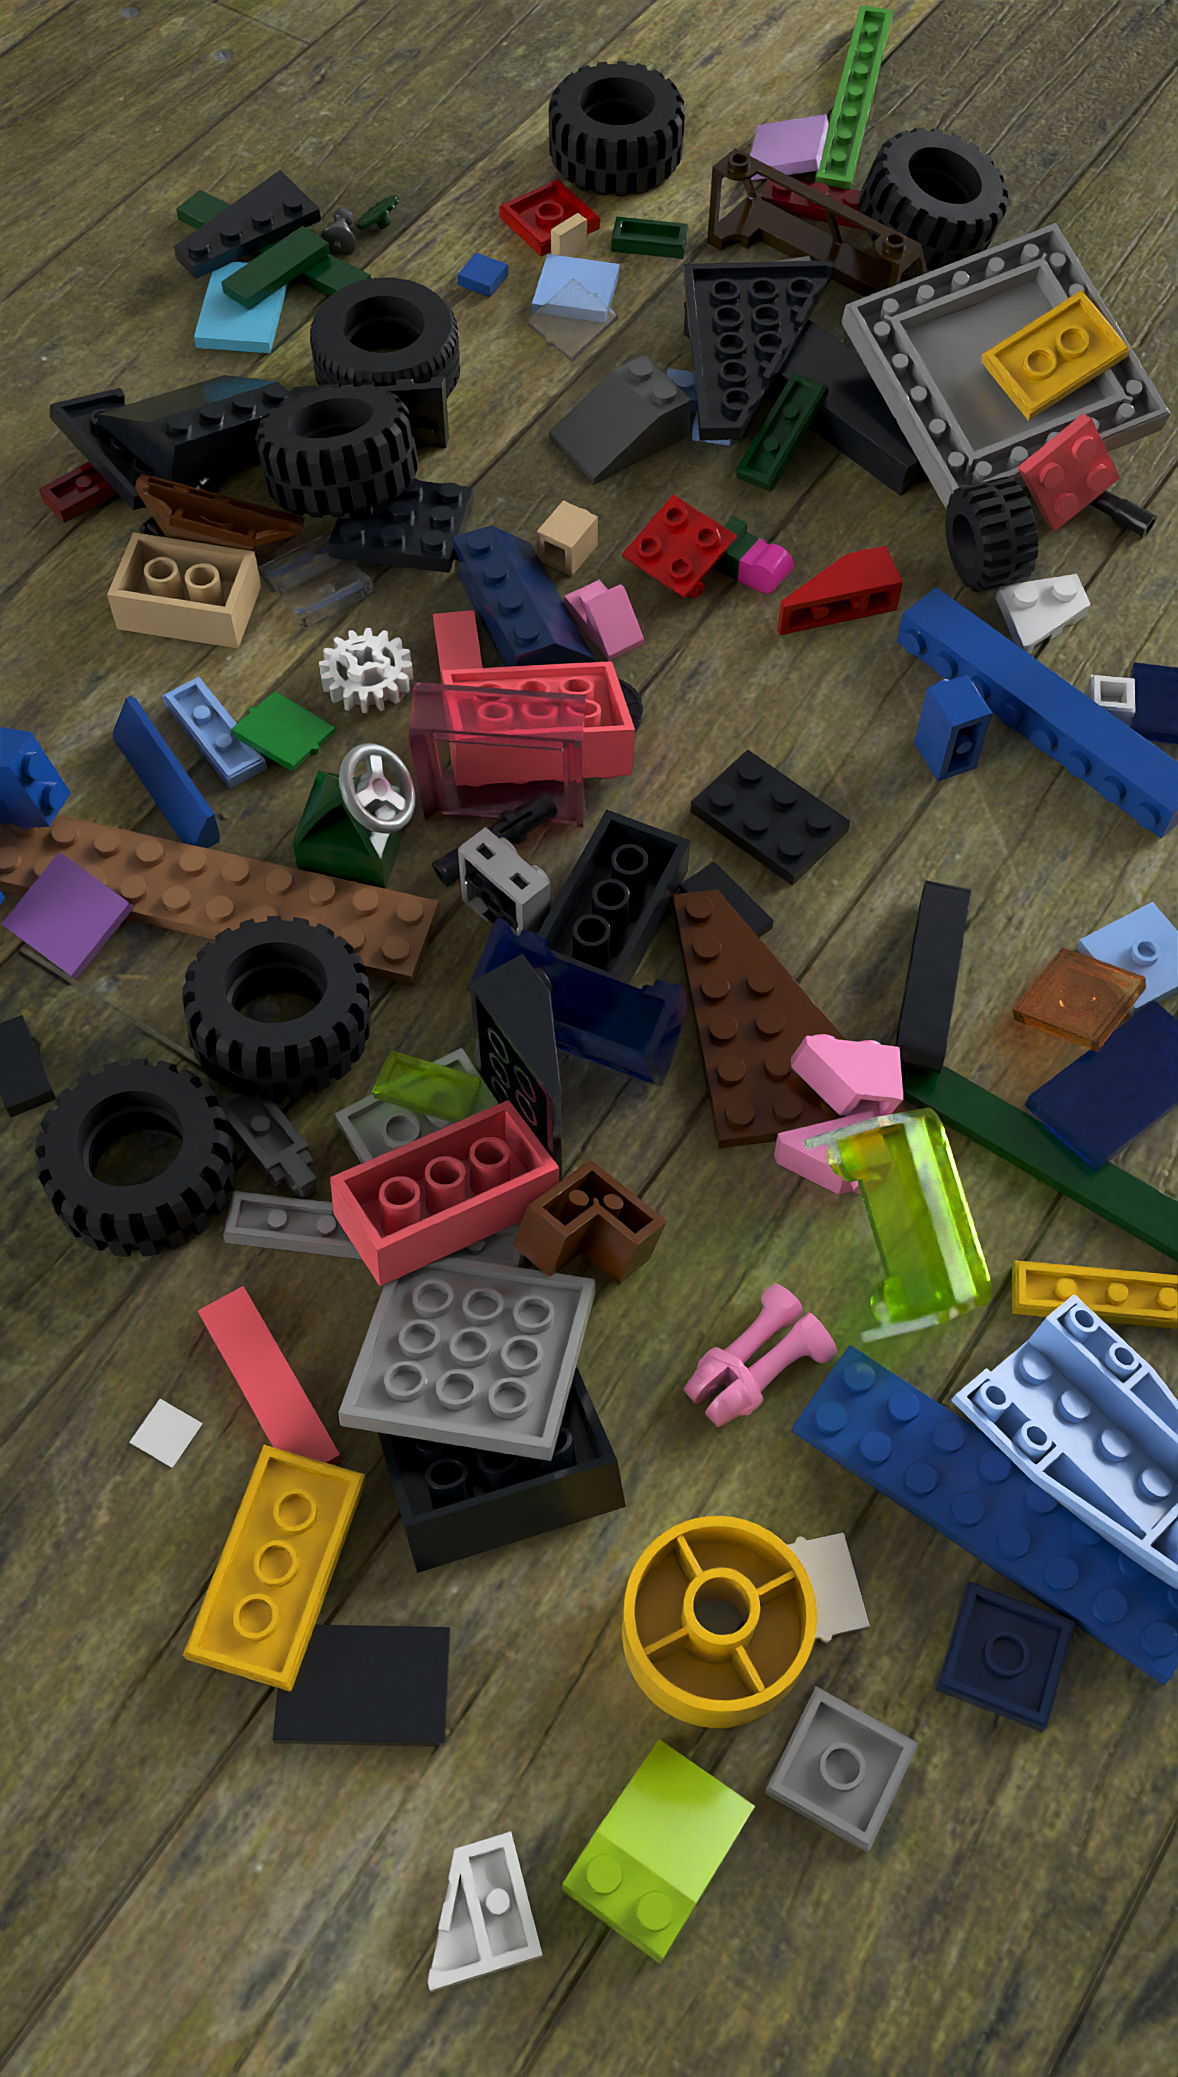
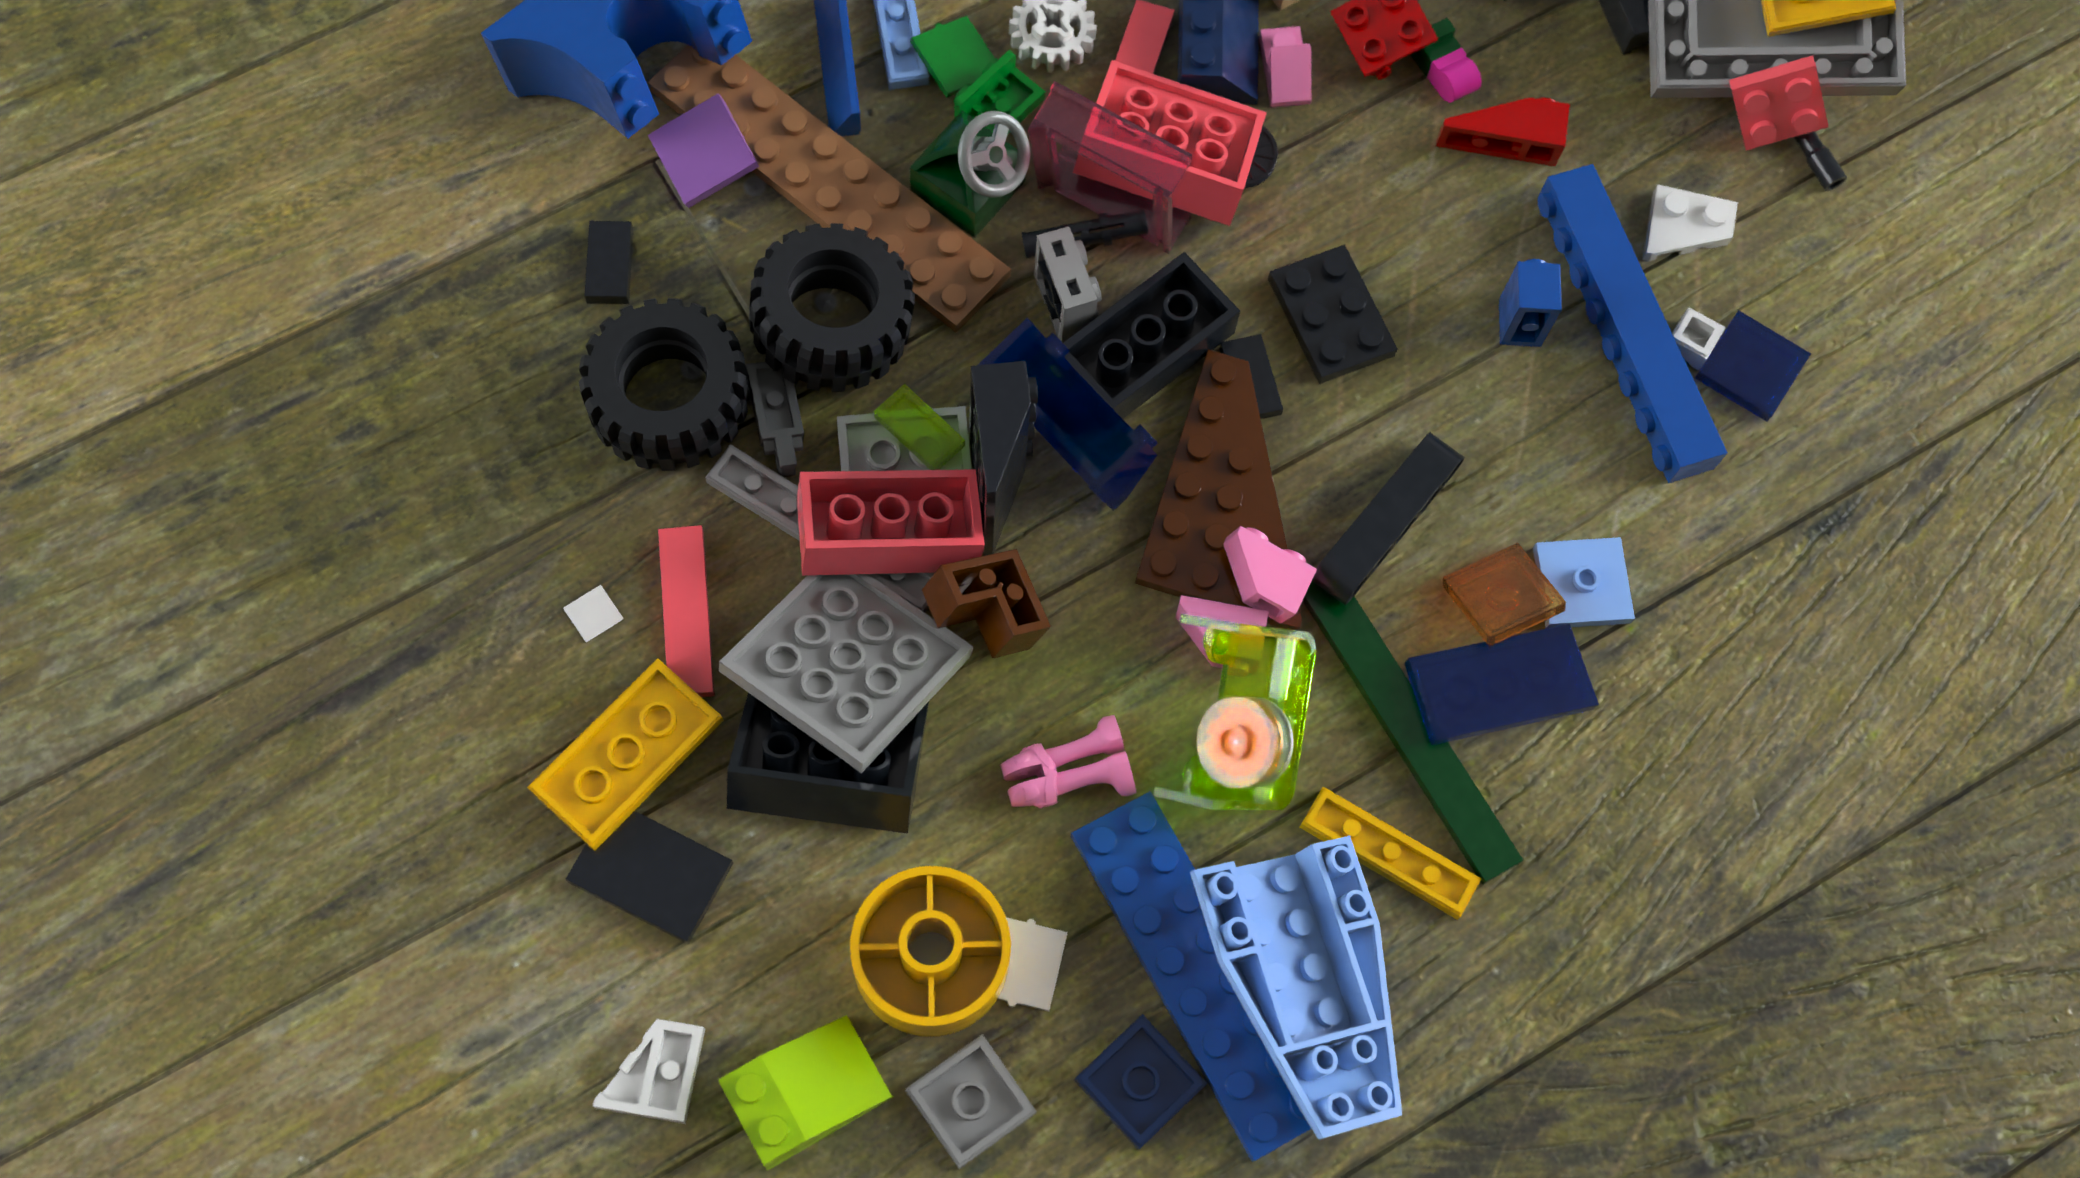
camera: 20 degrees right, 10 degrees up
(337, 737) = (1000, 89): none -> green bracket
(924, 1246) = (1244, 742): none -> clear orange piece
(991, 534) = (1670, 134): black tyre -> none

